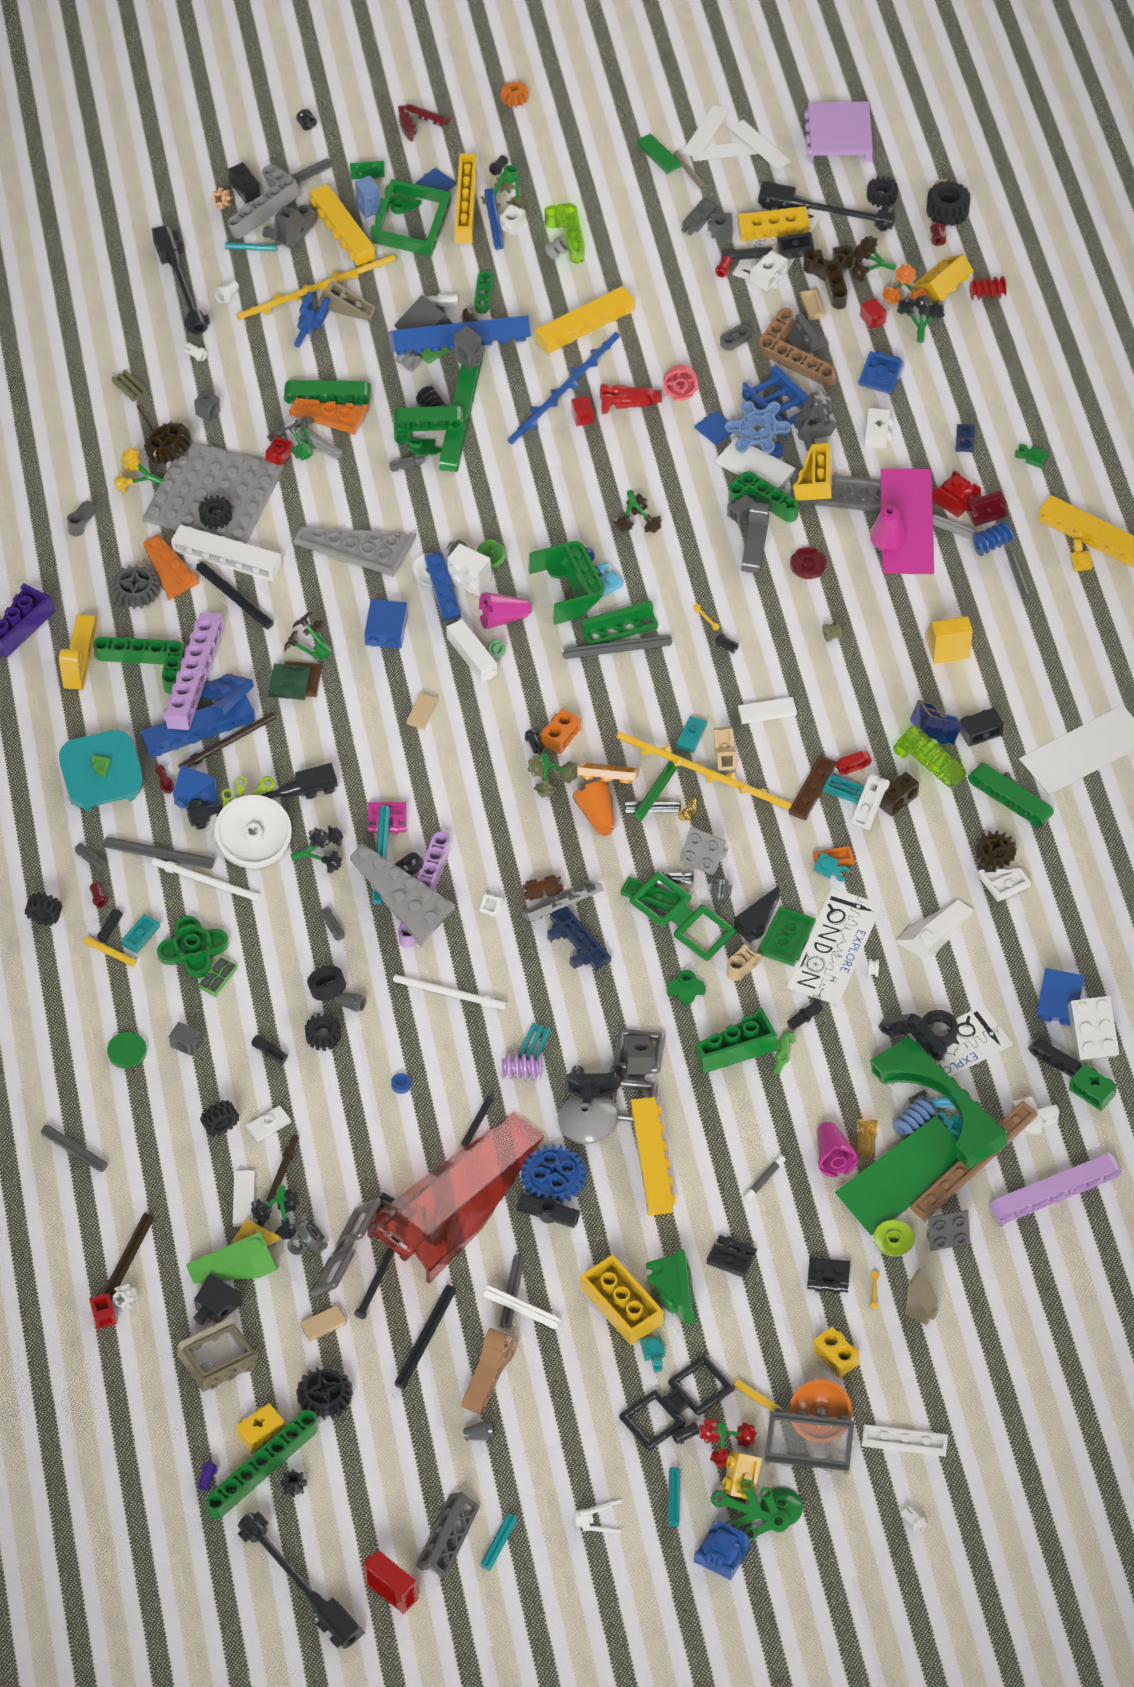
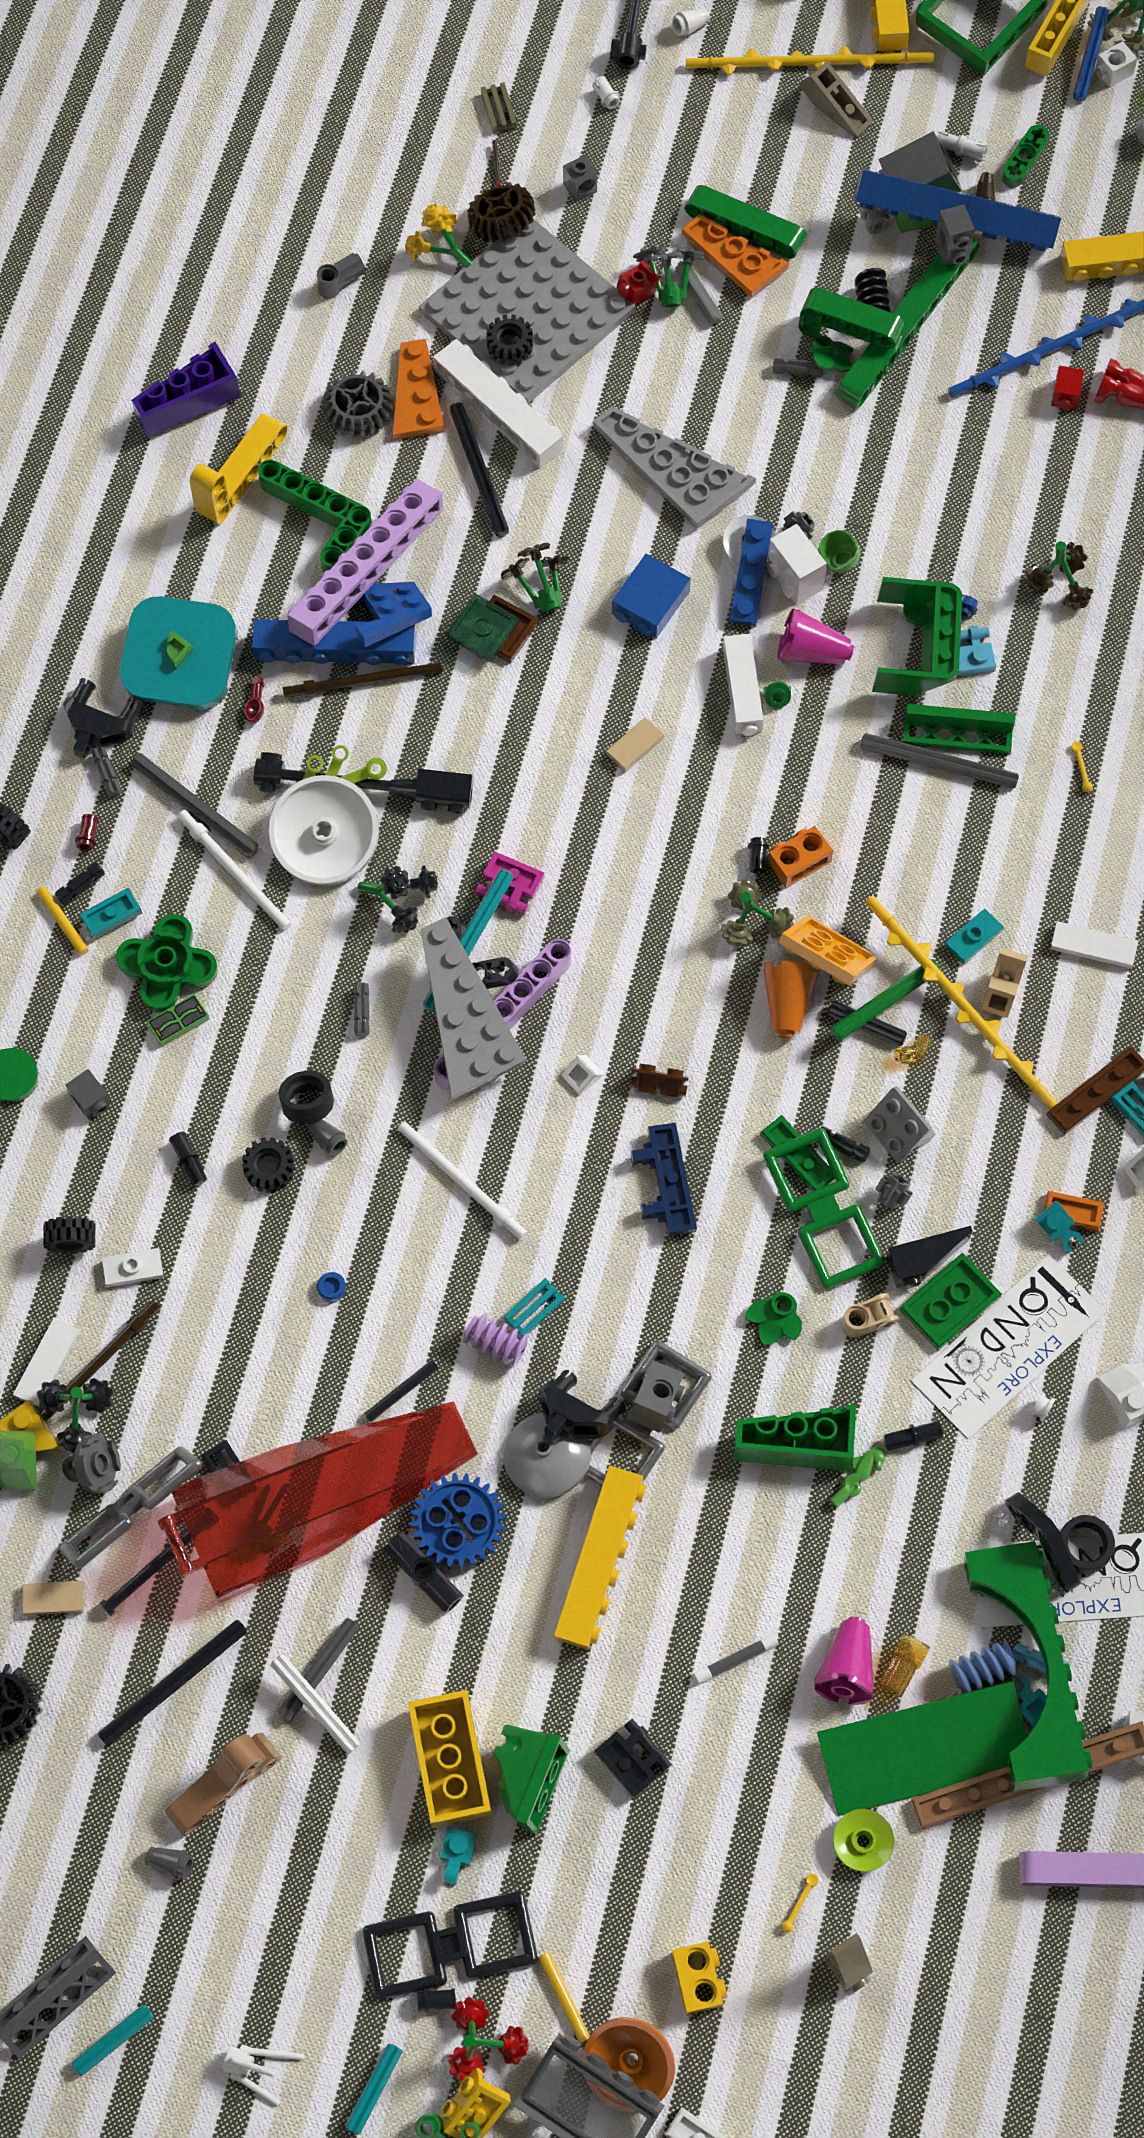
camera: 25 degrees right, 15 degrees up
(68, 832) = (94, 726): none -> black connector
(193, 786) = (279, 734): blue slope -> none
(309, 318) = (777, 104): blue plant -> none
(563, 899) = (681, 1112): light grey wing -> none
(726, 643) = (1089, 820): black pin -> none
(828, 1270) = (752, 1843): black plate -> none
(948, 1230) = (942, 1869): dark grey hinge -> none

